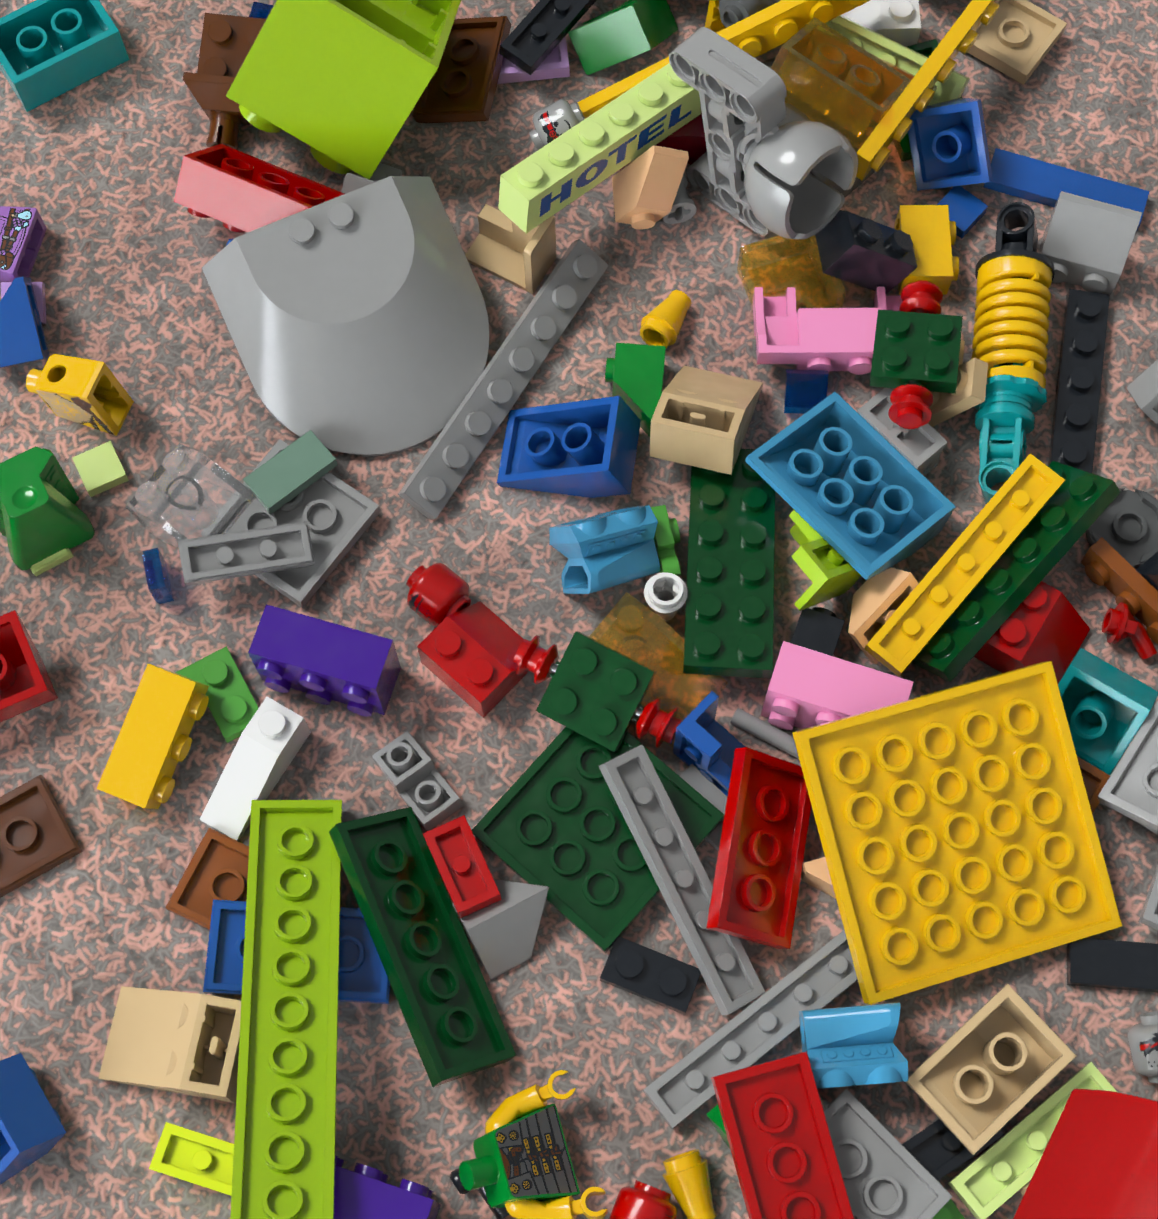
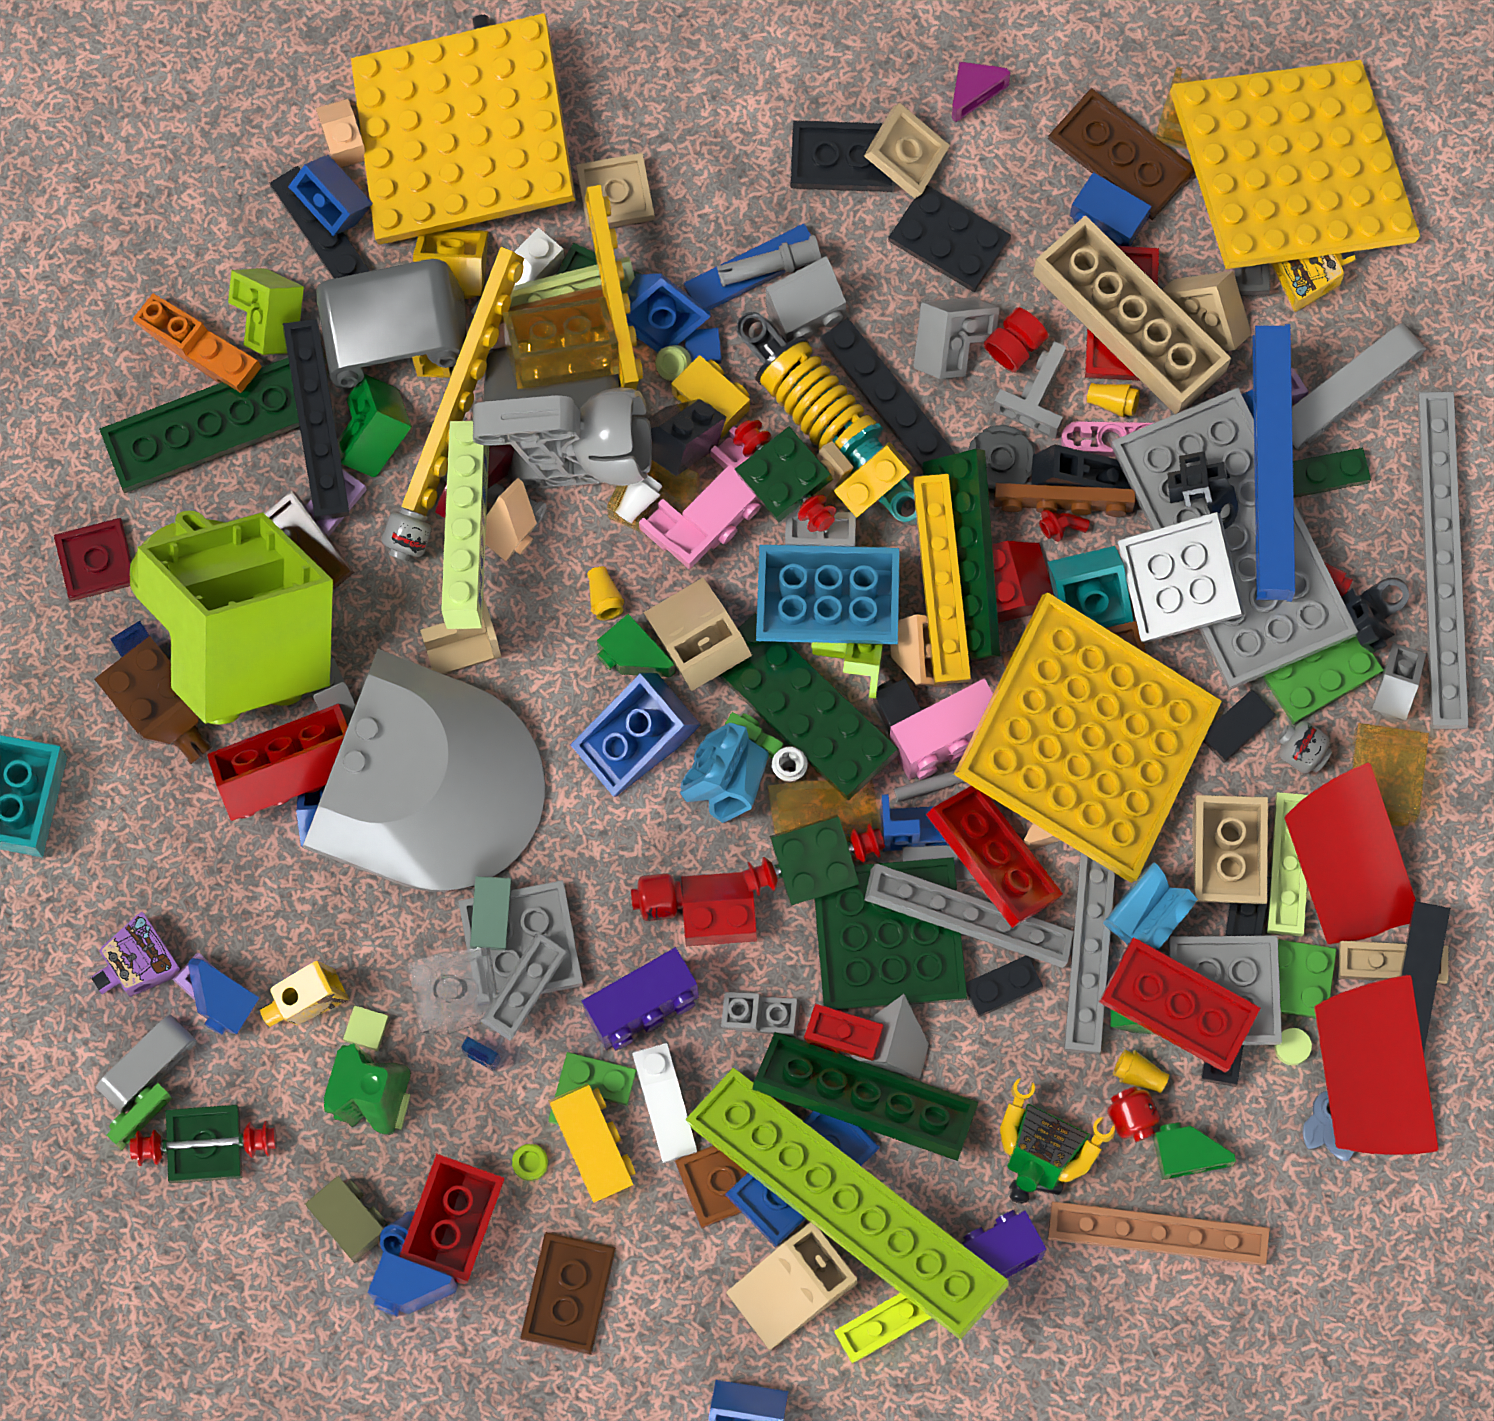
camera: 45 degrees left, 5 degrees up
(97, 706) = (530, 1162): none -> lime tile
(503, 380) = (548, 727): light grey plate -> none
(776, 267) = (638, 498): none -> white cone
(804, 389) = (734, 558): clear blue tile -> none
(921, 192) = (672, 361): none -> yellowish green tile
(990, 423) = (873, 479): none -> yellow brick
(1067, 180) = (786, 257): none -> light grey pin

